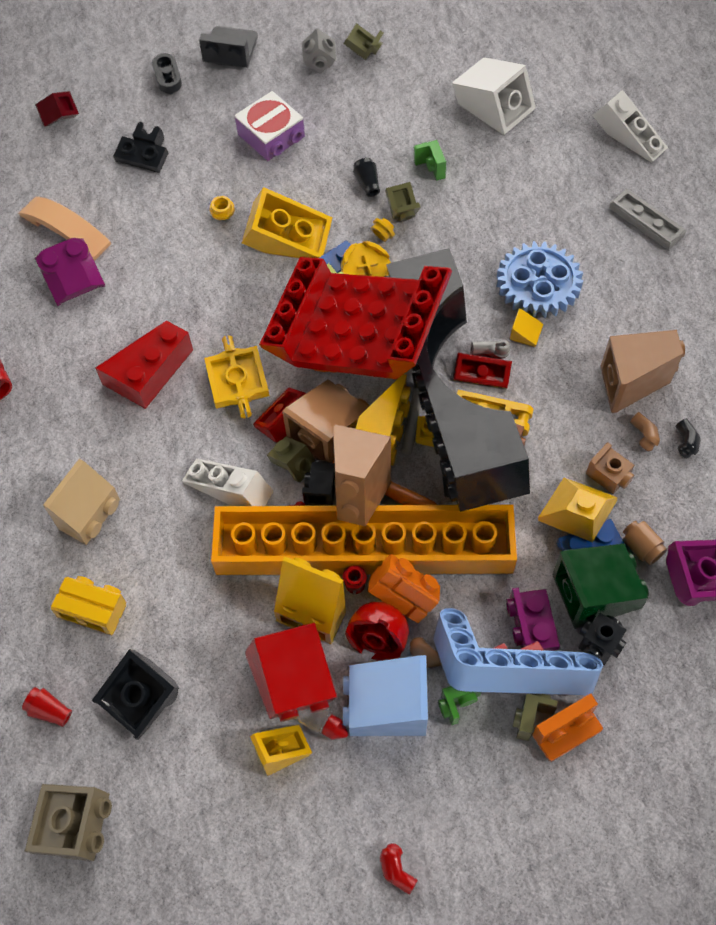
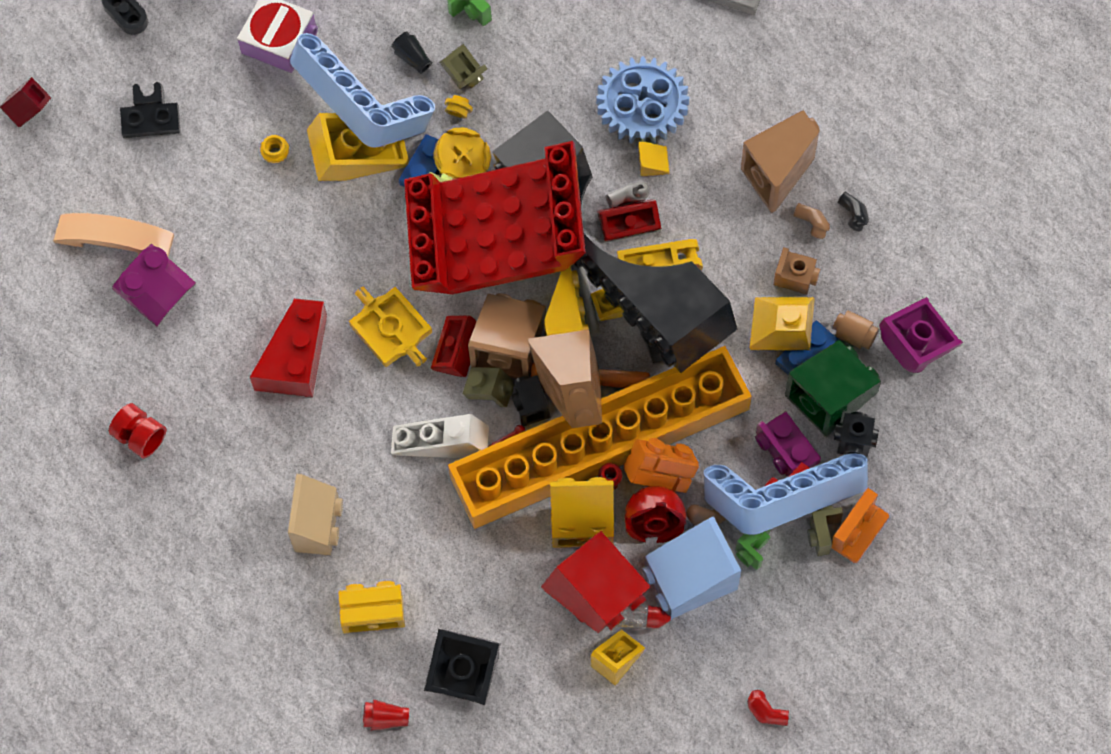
camera: 25 degrees left, 5 degrees up
(296, 194) = (352, 102): none -> light blue beam

